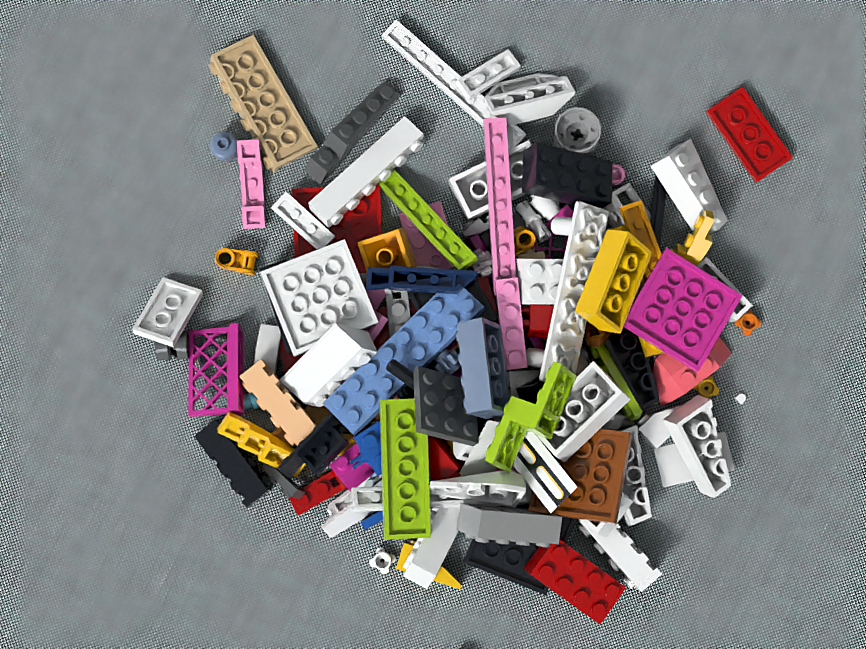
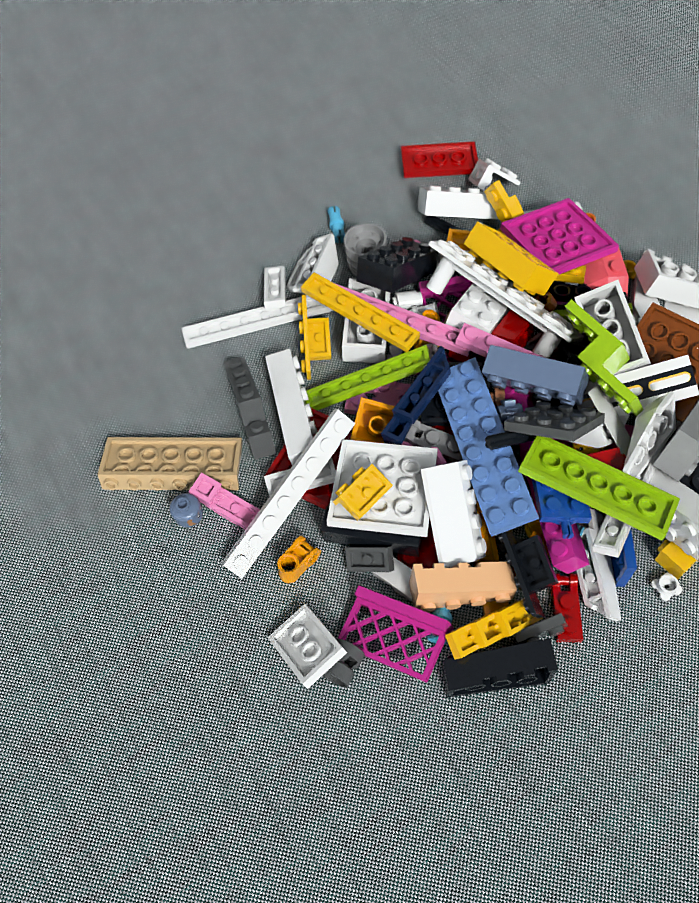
camera: 55 degrees left, 25 degrees down
(265, 319) = (369, 559): none -> dark grey plate
(281, 222) = (288, 493): none -> white plate
(297, 285) = (363, 492): none -> yellow bracket
(454, 146) = (316, 338): none -> yellow bracket
(480, 177) = (360, 312): none -> yellow plate
(603, 83) = (336, 224): none -> medium azure pin
(753, 201) = (483, 170): none -> white bracket

